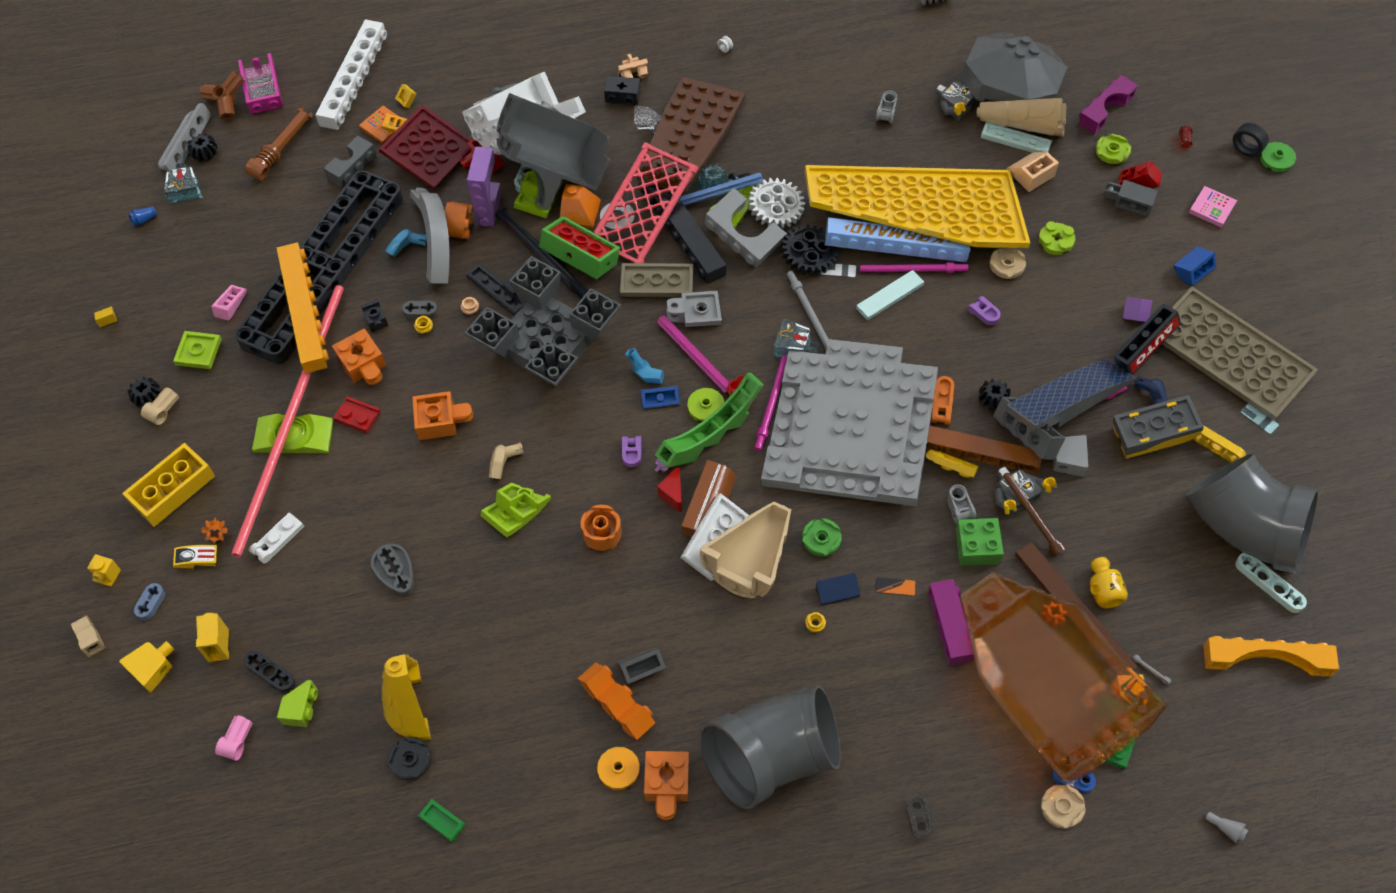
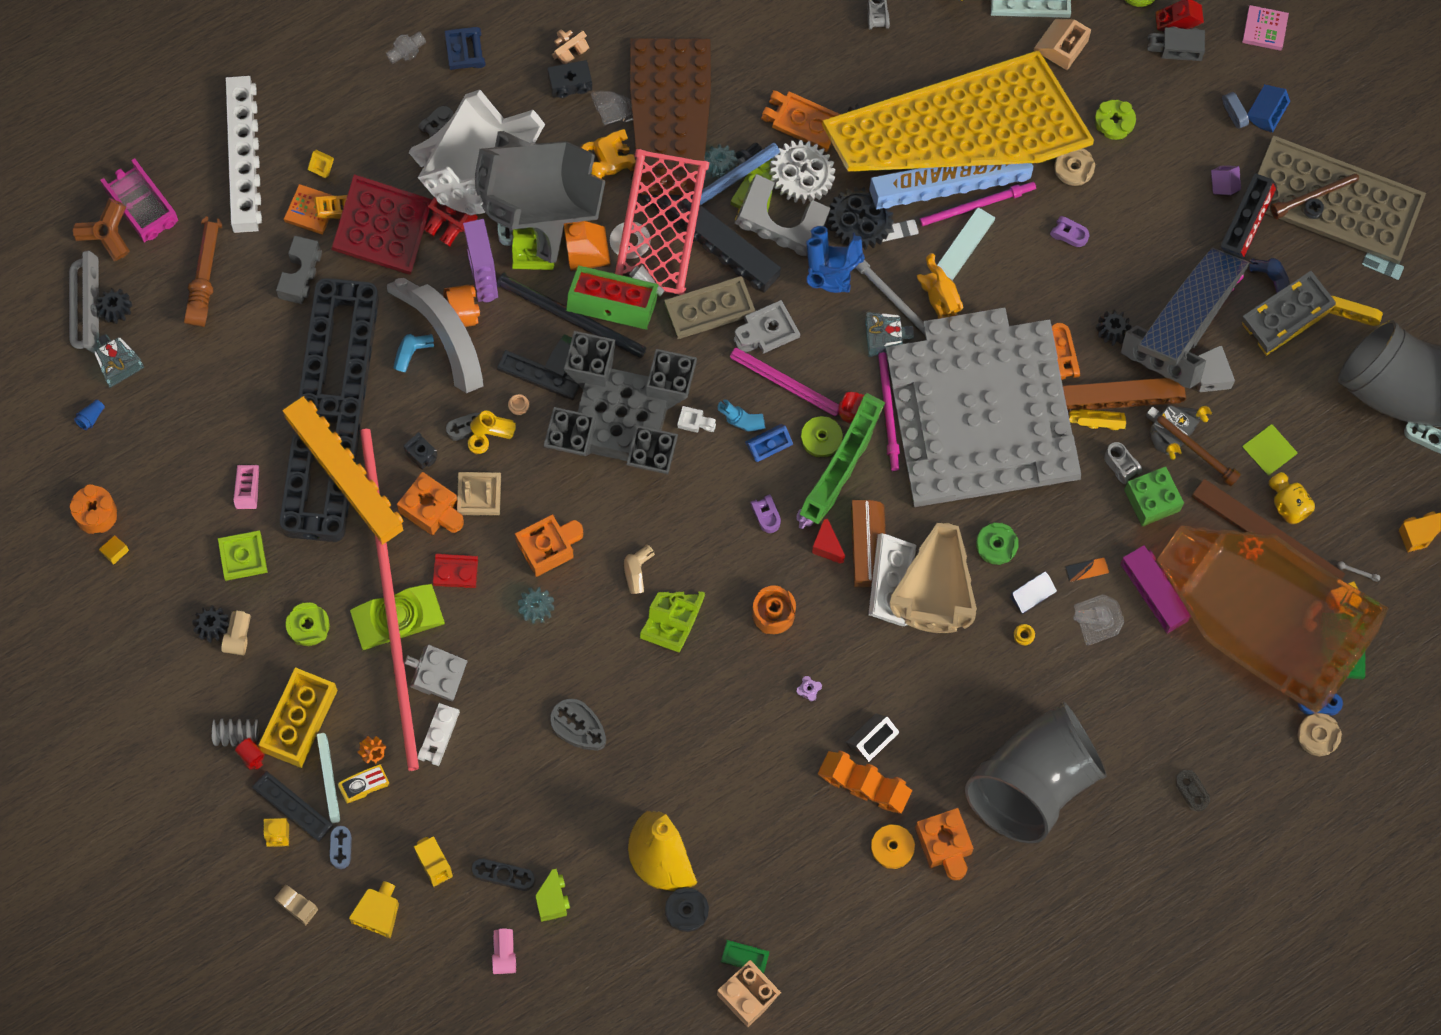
camera: 25 degrees left, 10 degrees up
(104, 281) = (92, 498): none -> orange brick
(113, 479) = (234, 732): none -> light grey piece
(114, 500) = (250, 754): none -> red piece
(130, 555) = (292, 806): none -> black tile
(168, 541) = (328, 778): none -> light aqua tile
(225, 424) = (315, 615): none -> lime plate
(299, 487) = (437, 672): none -> light grey plate
(404, 361) = (479, 493): none -> tan plate
(406, 460) = (543, 601): none -> clear light blue gear
(425, 854) = (748, 993): none -> light nougat slope
(439, 312) = (489, 424): none -> yellow piece
(509, 37) = (406, 47): none -> clear axle
(548, 47) = (458, 50): none -> dark blue plate
(604, 358) = (692, 419): none -> white plate
(604, 610) = (809, 694): none -> lavender plate
(610, 235) = (642, 274): none -> light grey cone
(628, 148) = (607, 153): none -> light orange animal
(766, 274) = (830, 264): none -> blue helmet
(788, 165) = (799, 118): none -> orange tile
(853, 318) = (941, 290): none -> light orange animal
(888, 629) = (1098, 618): none -> clear piece
(1102, 538) = (1270, 449): none -> lime sticker
(1164, 259) = (1235, 110): none -> sand blue beam
(1178, 342) = (1280, 209): none -> reddish brown piece
(1214, 349) = (1316, 203): none -> black bush

